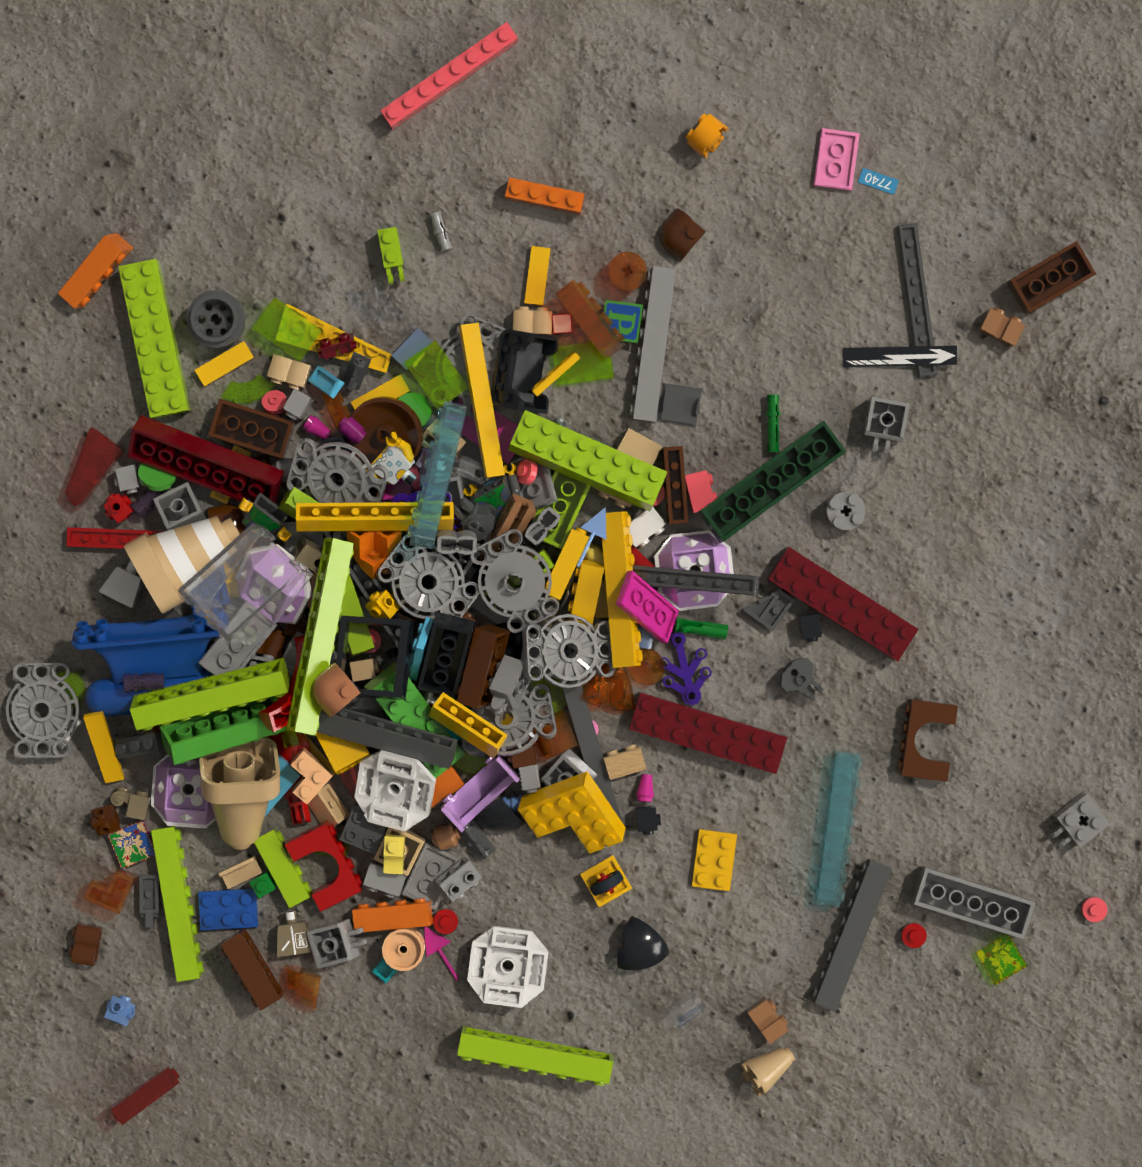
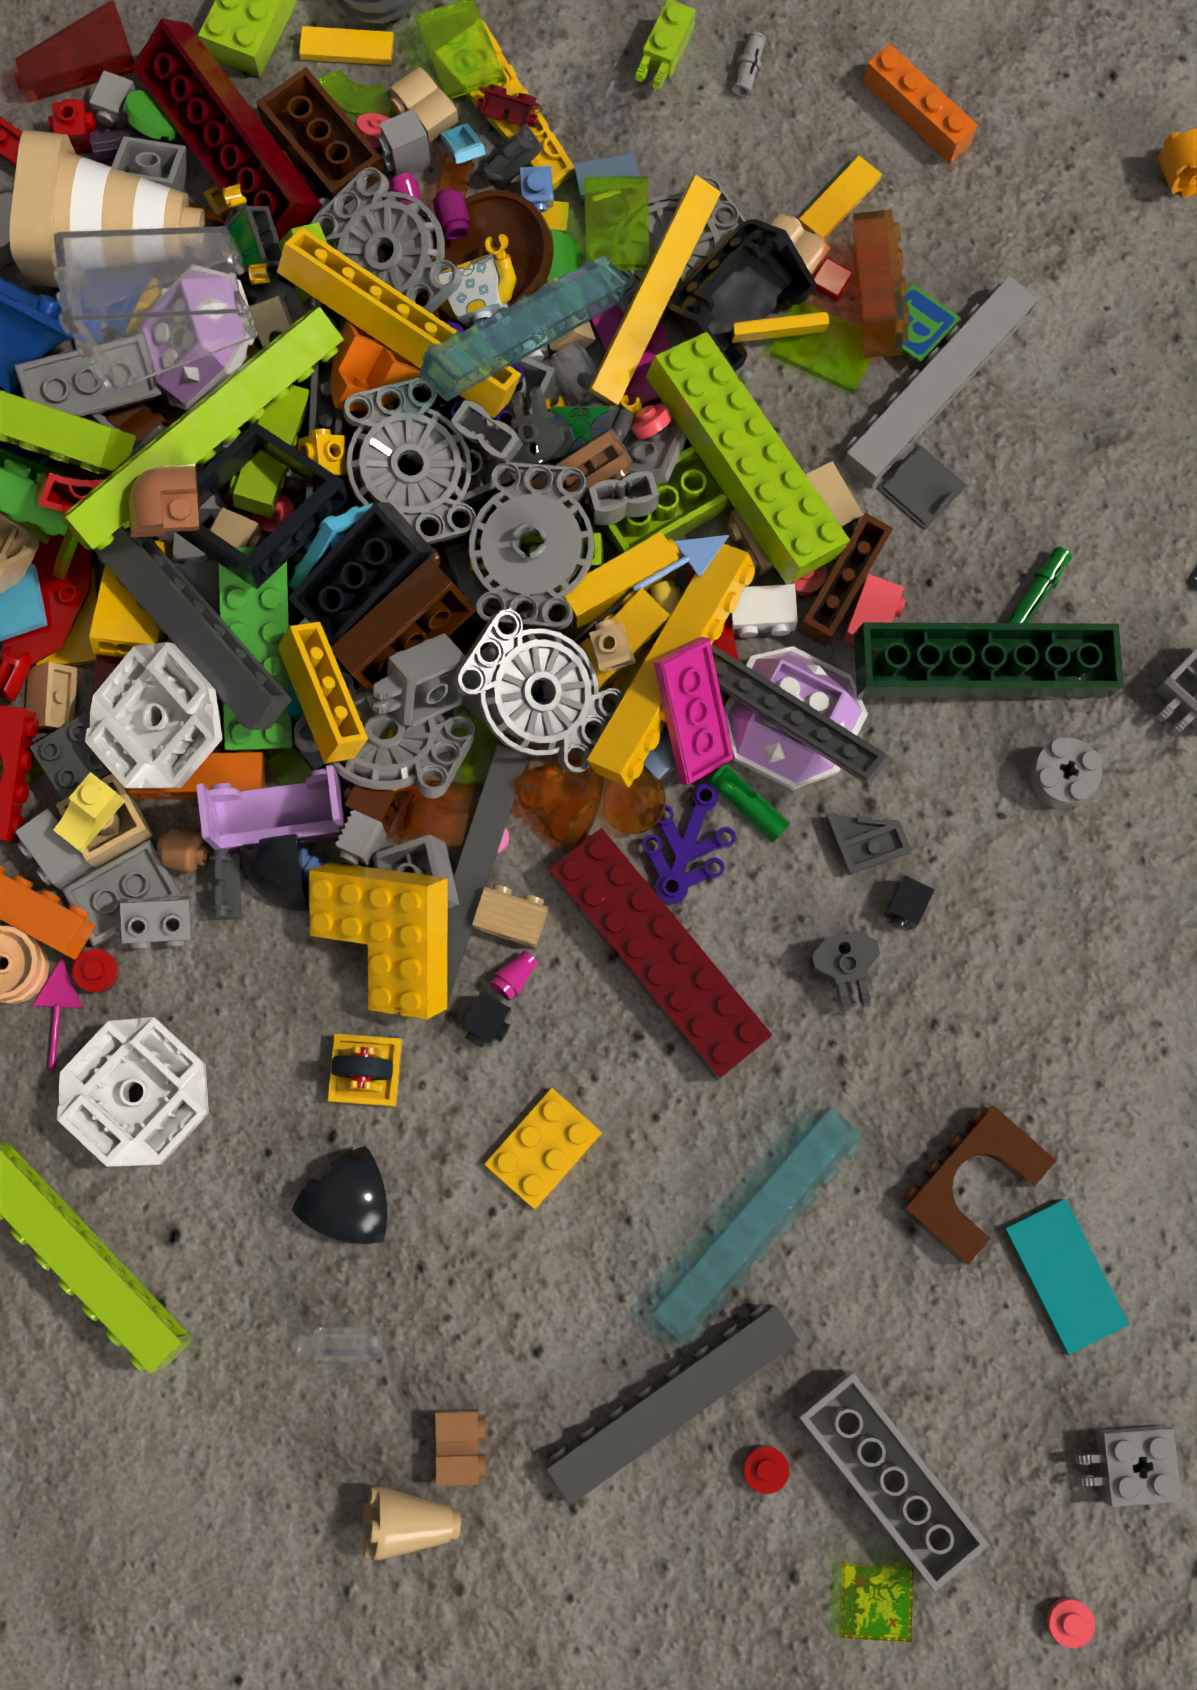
camera: 30 degrees right, 10 degrees down
(314, 775) = (60, 633): light nougat brick -> none
(381, 381) = (537, 186): none -> medium blue bracket
(595, 603) = (617, 657): none -> tan brick
(622, 262) = (967, 265): clear orange brick -> none
(679, 234) = (1071, 267): reddish brown brick -> none
(842, 604) = (977, 901): dark red brick -> none
(996, 754) = (1066, 1277): none -> teal tile

